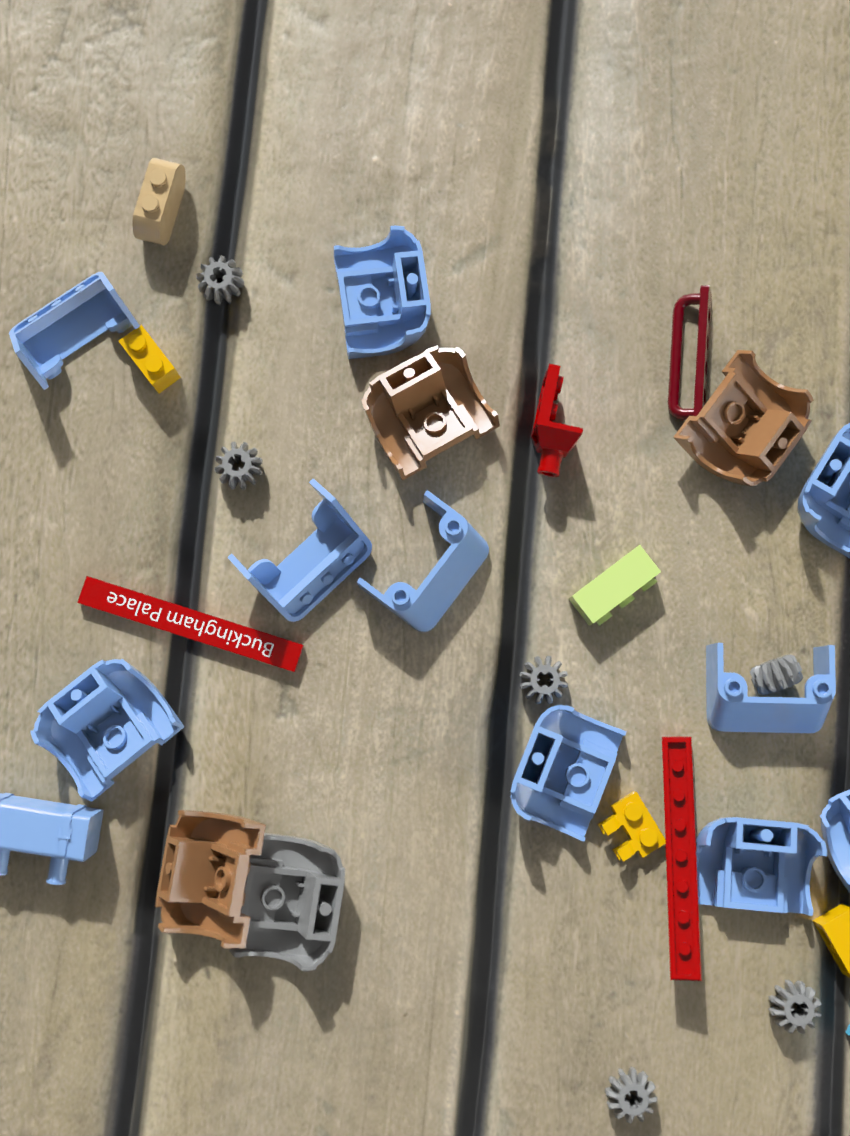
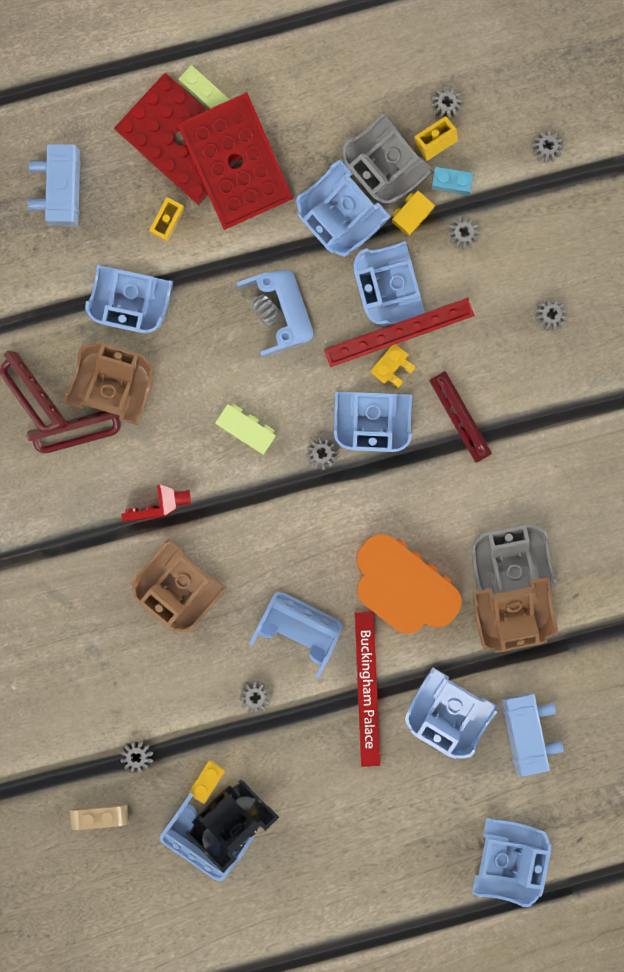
camera: 110 degrees left, 5 degrees up
(76, 365) = (229, 823): none -> black piece
(310, 726) = (404, 587): none -> orange brick
(383, 294) = (109, 646): light blue piece -> none
(446, 580) = (280, 536): light blue windscreen -> none
(467, 914) = (462, 416): none -> dark red piece
(766, 319) = (36, 390): none -> dark red piece

